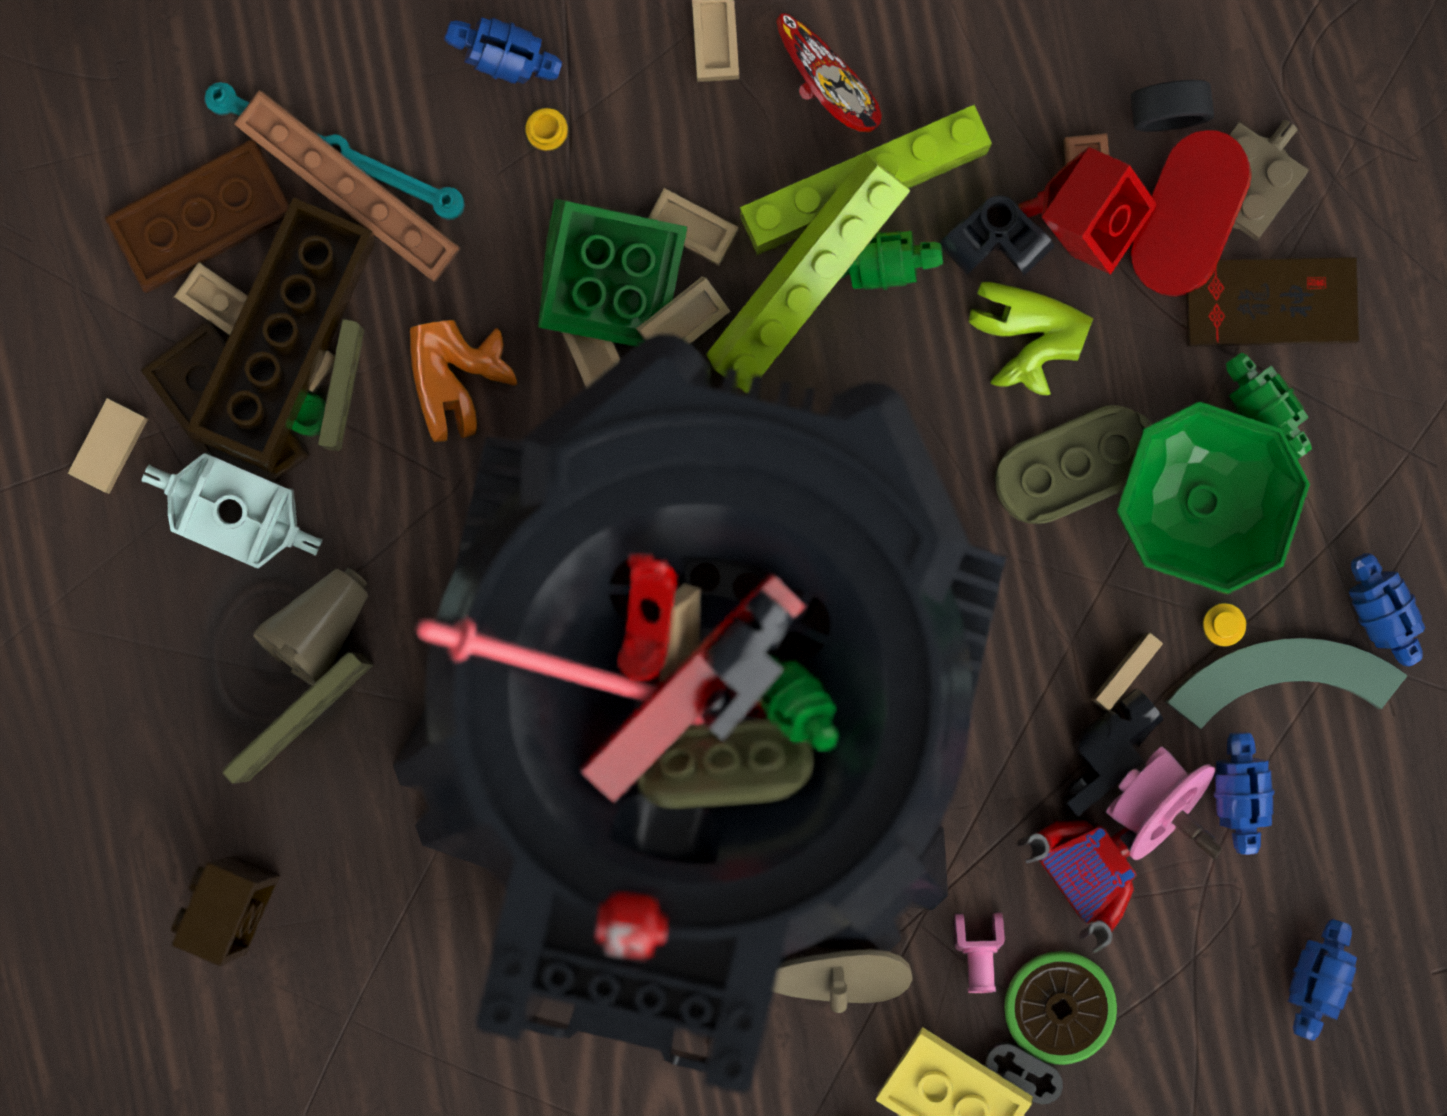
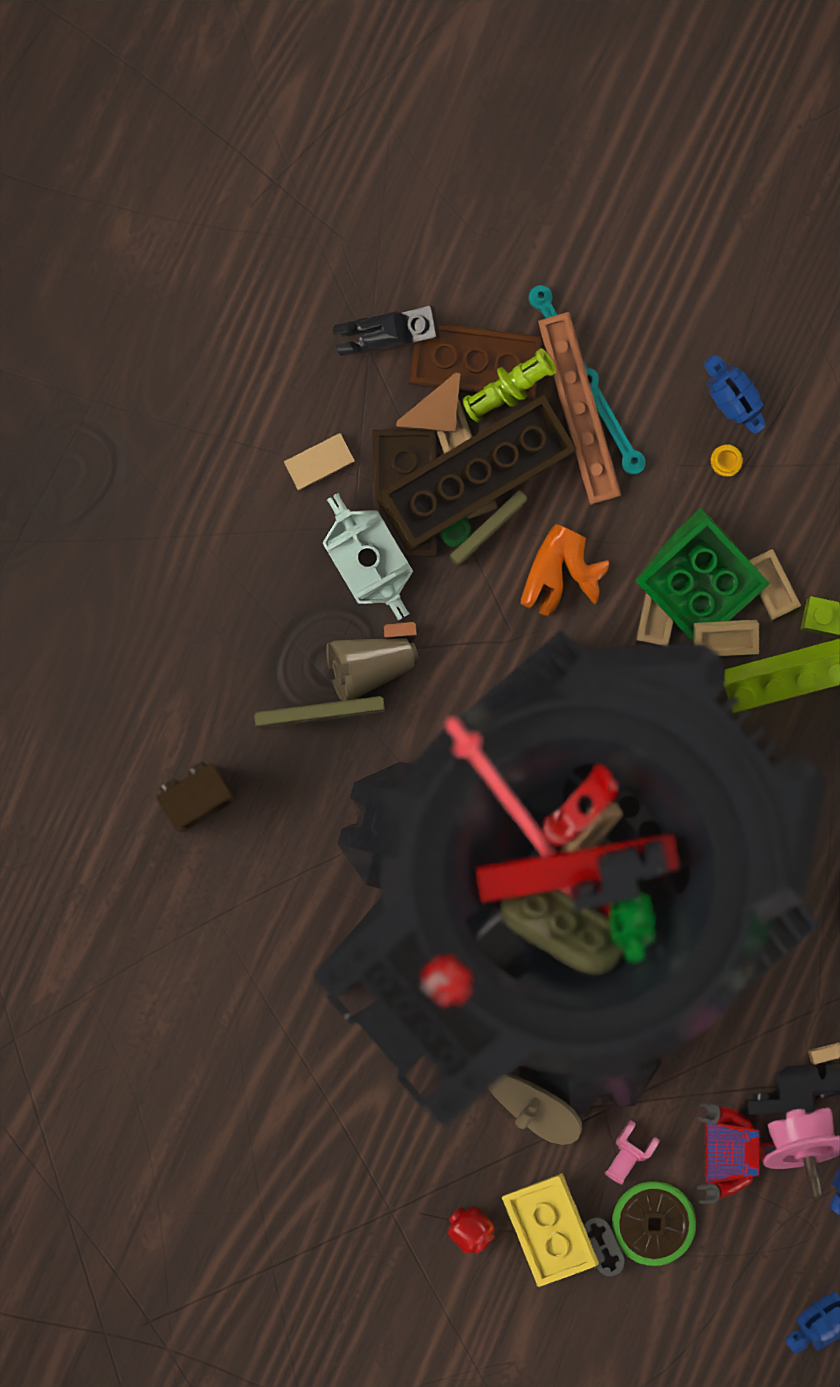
camera: 30 degrees right, 0 degrees up
(78, 251) = (388, 331): none -> black plate
(192, 299) = (436, 410): none -> medium nougat tile
(252, 214) = (510, 386): none -> lime piece
(325, 563) = (400, 630): none -> nougat tile

